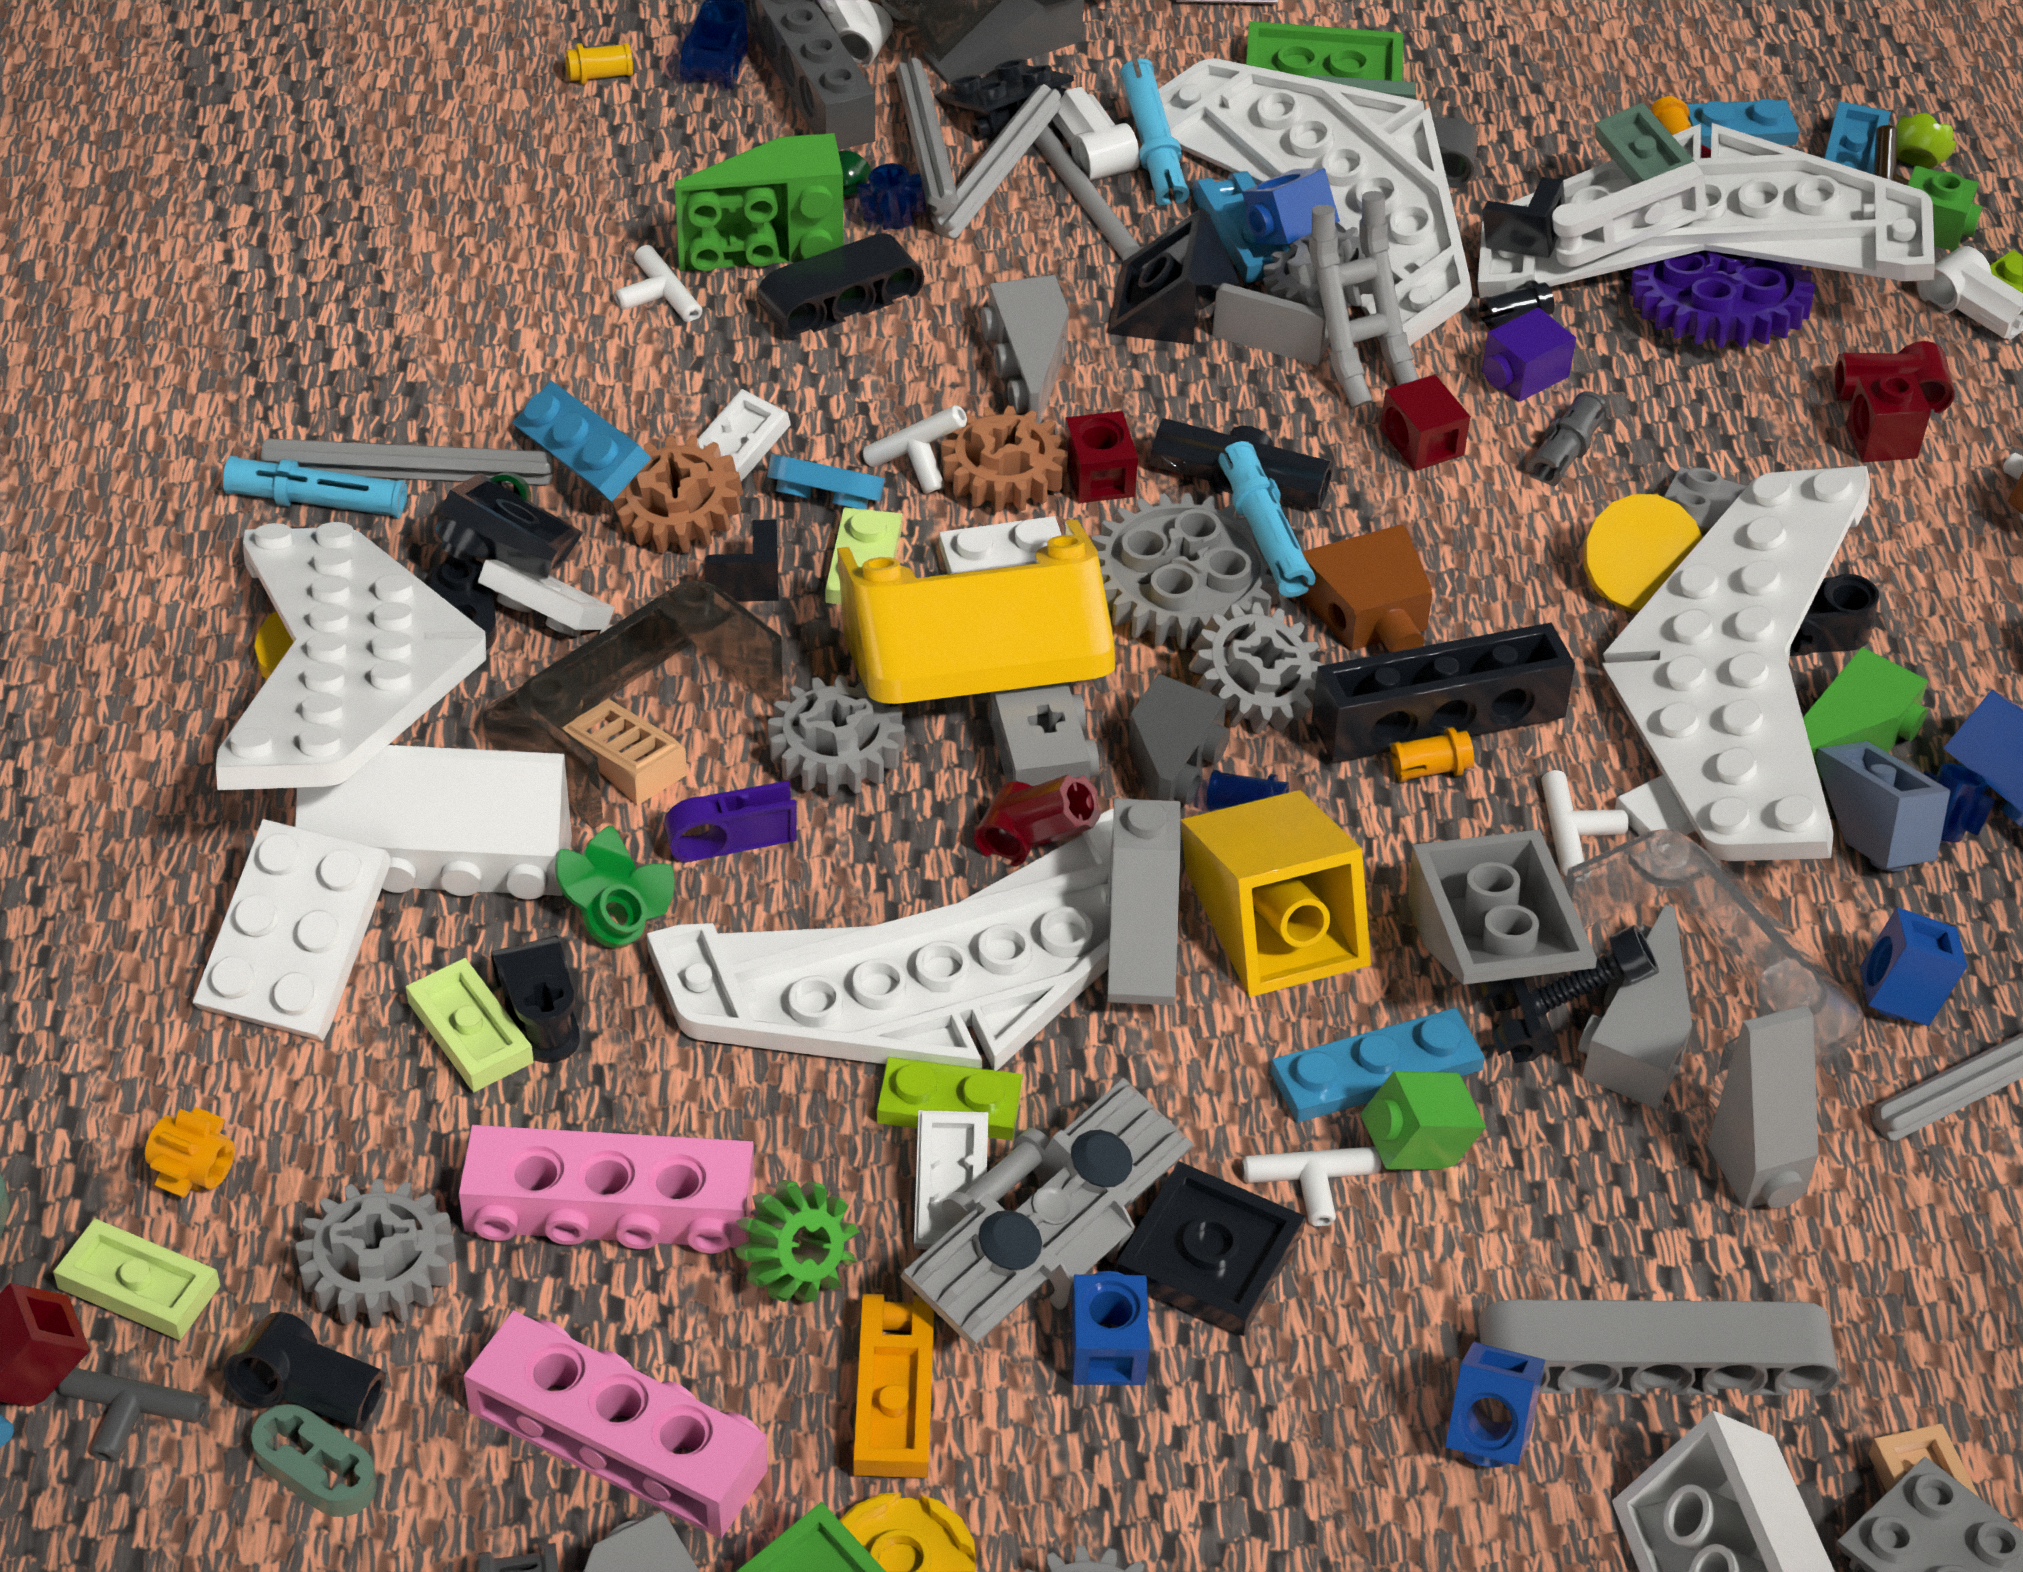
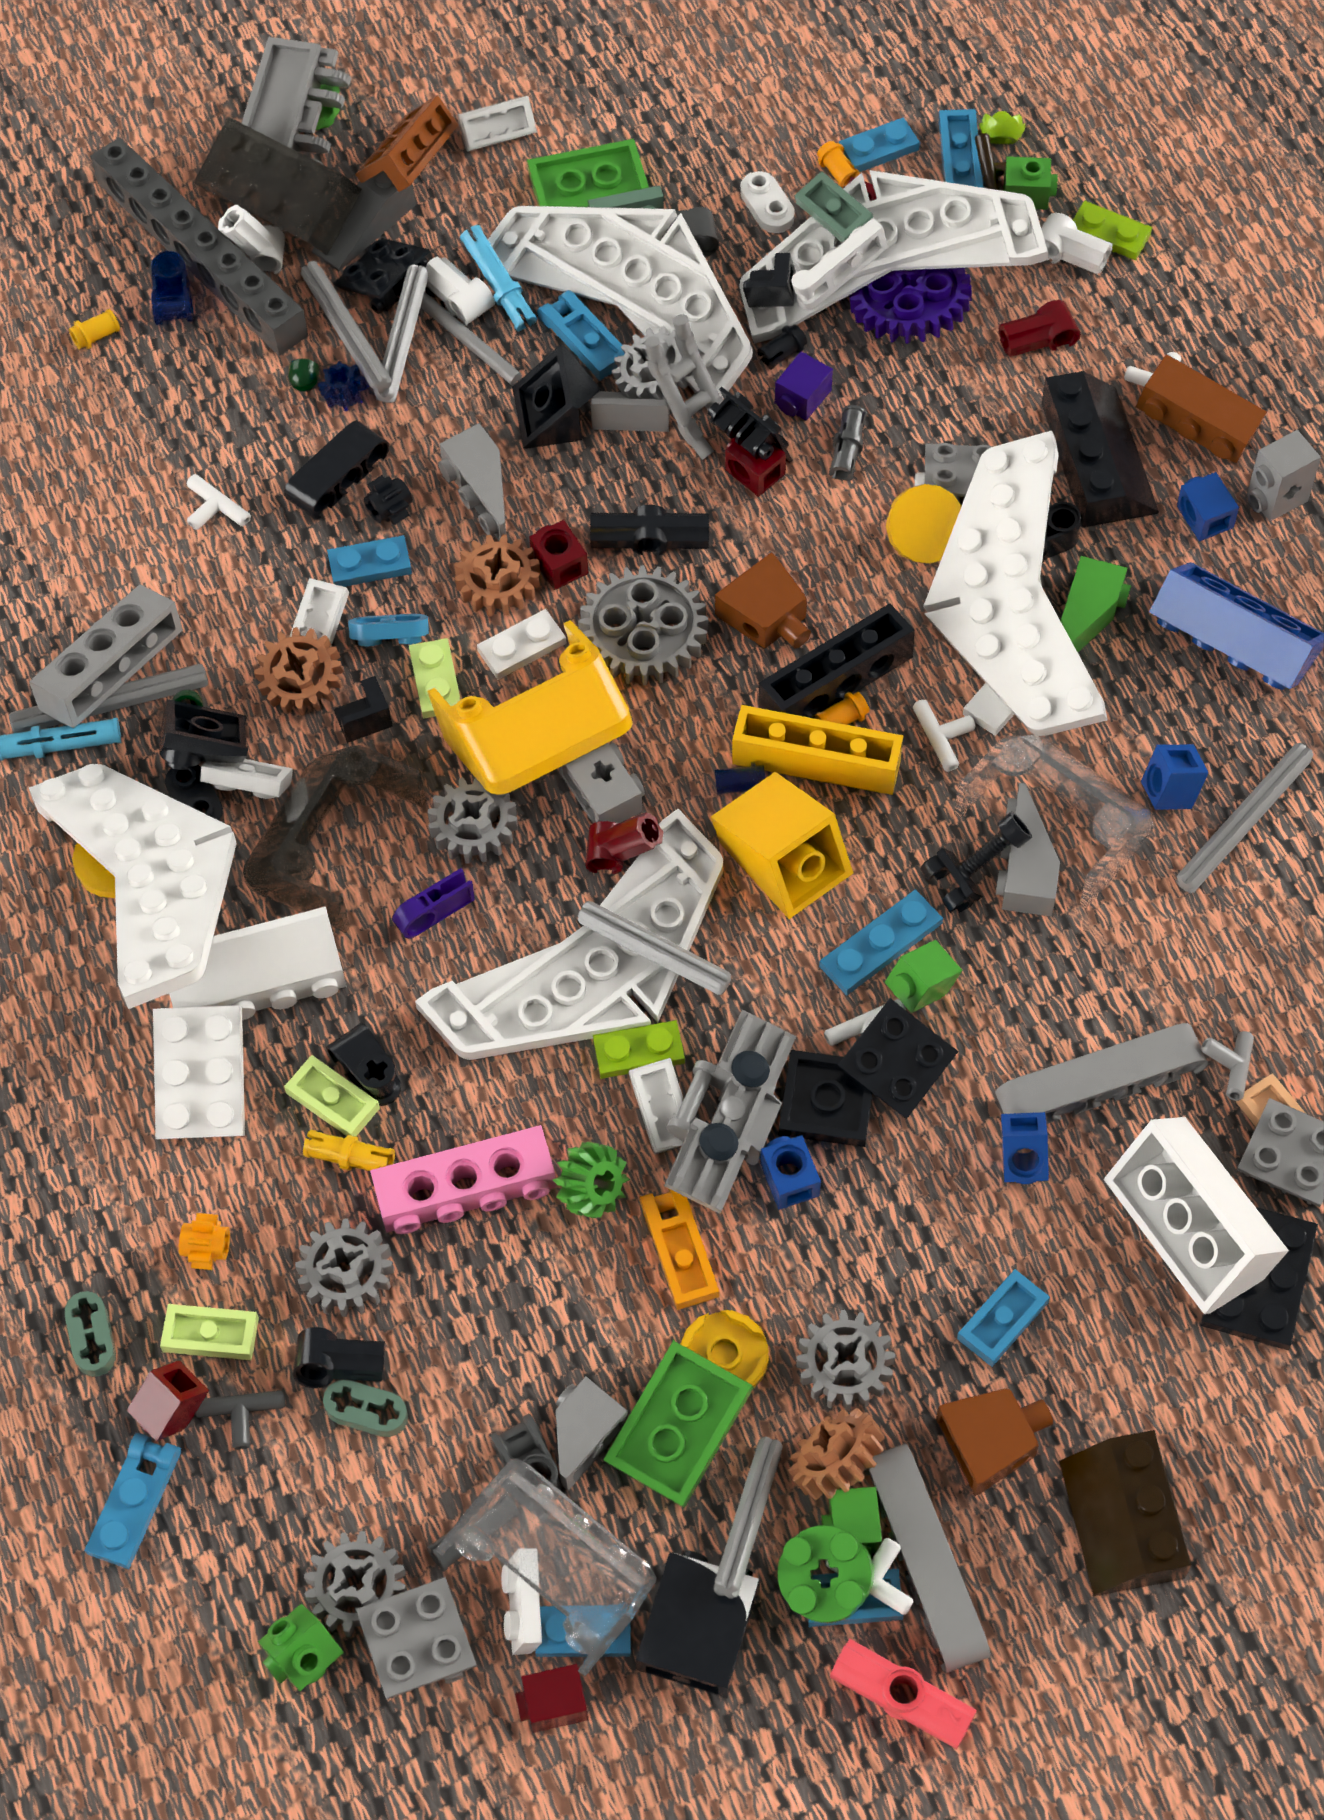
camera: 15 degrees left, 15 degrees up
(421, 402) = (106, 656): none -> light grey brick
(452, 1099) = (347, 1151): none -> yellow pin
(581, 440) = (220, 651): dark azure plate -> none
(608, 881) = (377, 972): green plate -> none
(635, 779) = (359, 892): light nougat slope -> none
(701, 1487) = (550, 1344): bright pink brick -> none
(762, 206) = (267, 426): bright green slope -> none
(838, 401) = (369, 561): none -> dark azure plate
(892, 334) = (388, 499): none -> black gear
(916, 442) = (438, 582): white piece -> none
(1027, 963) = (654, 947): none -> light grey axle
(1144, 901) = (710, 884): light grey slope -> none
(1174, 737) = (680, 756): dark grey slope -> none
(1256, 666) = (719, 671): light grey gear -> none
(1260, 504) = (676, 565): medium azure pin -> none
(1282, 206) = (615, 321): blue brick -> none
(1340, 1219) = (897, 1058): none -> black hinge
(1370, 775) = (817, 749): none -> yellow brick
(1426, 368) = (750, 431): none -> black hinge
(1496, 908) = (923, 823): light grey slope -> none
(1559, 144) = (765, 199): none -> white plate
(1769, 1110) = (1124, 912): light grey slope -> none
(1883, 805) = (1124, 664): sand blue slope -> none
(1887, 1390) = (1236, 1061): none -> light grey piece
(1888, 417) = (1041, 360): dark red brick -> none
(1932, 536) = (1096, 449): none -> black slope
(1966, 805) = (1163, 649): clear blue gear -> none

